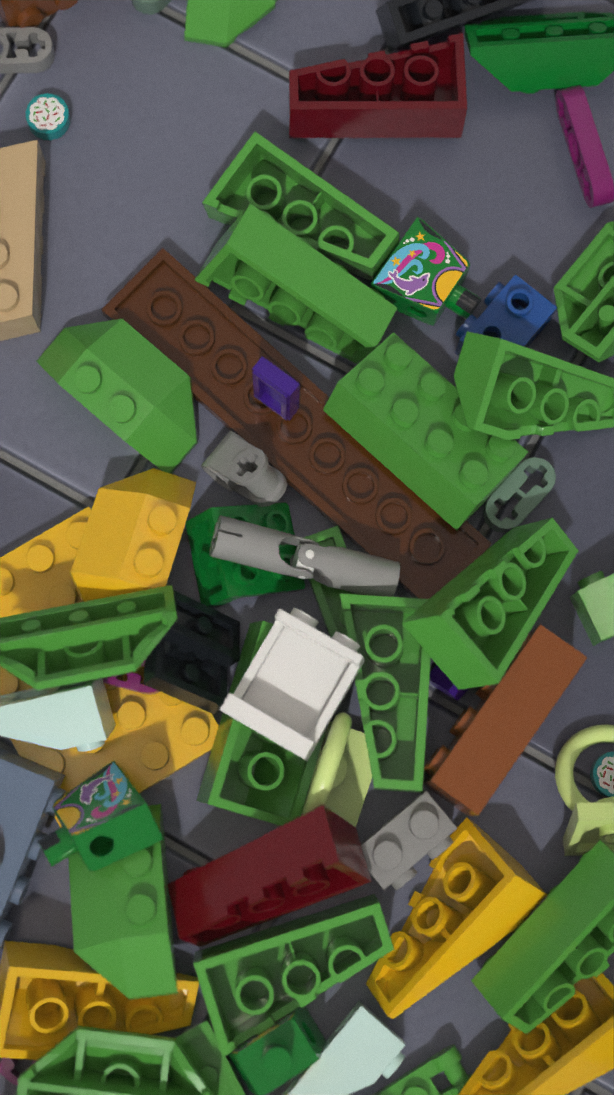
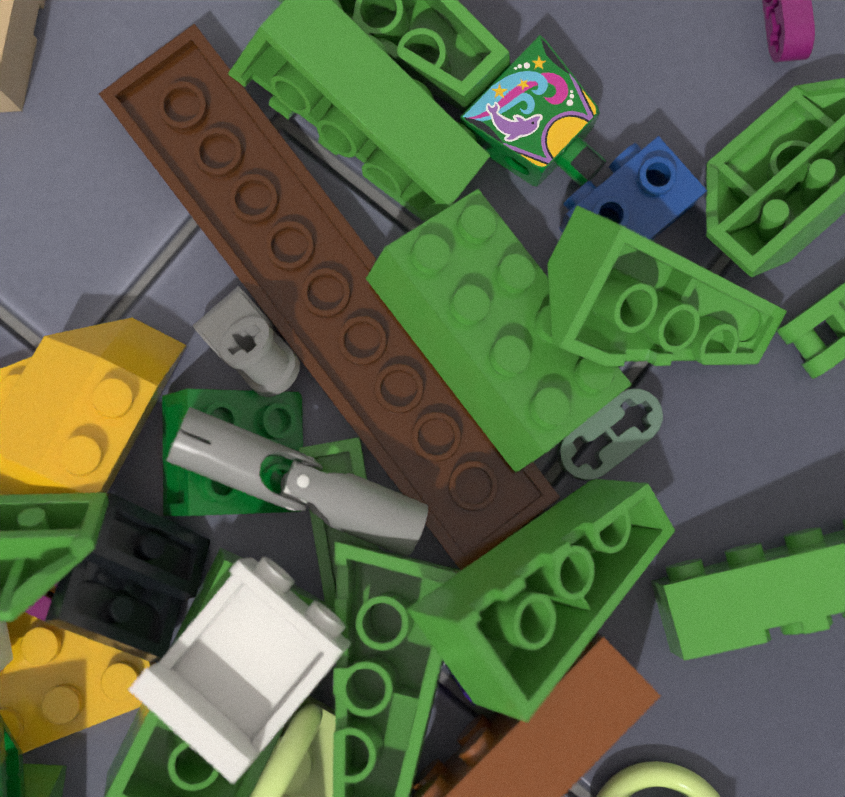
camera: 15 degrees right, 5 degrees up
(127, 388) = (112, 208): bright green wedge -> none
(275, 388) = (298, 240): dark purple tile -> none

